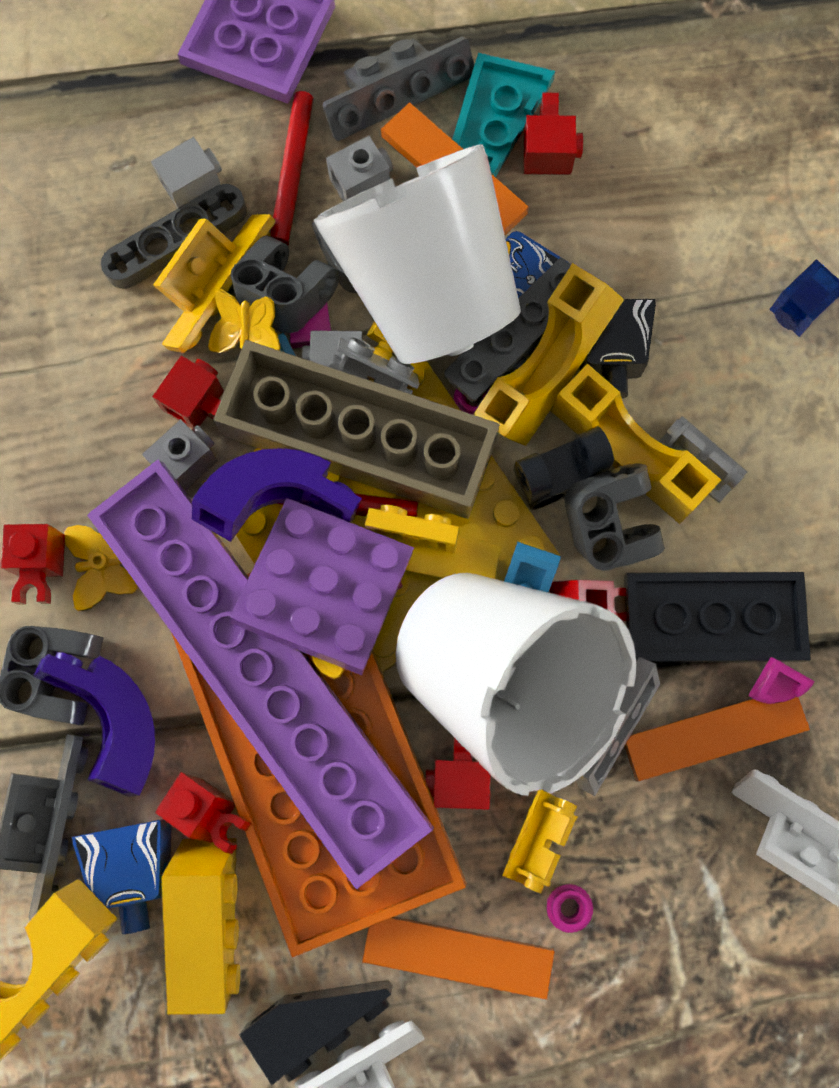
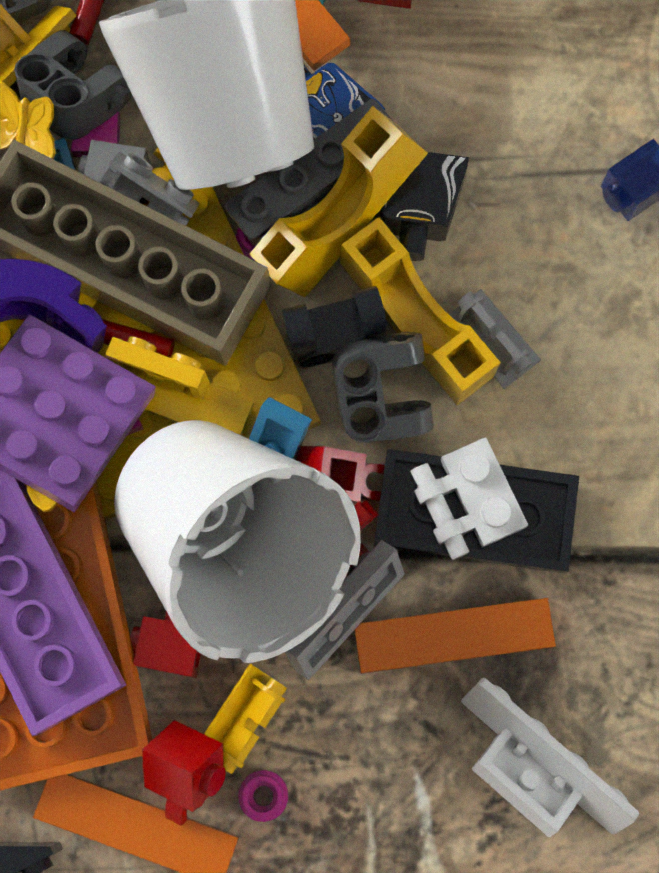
camera: 10 degrees right, 0 degrees up
(499, 897) = (183, 769): none -> red brick
(721, 599) = (482, 493): none -> white plate
(779, 683) = (529, 591): dark pink tile -> none

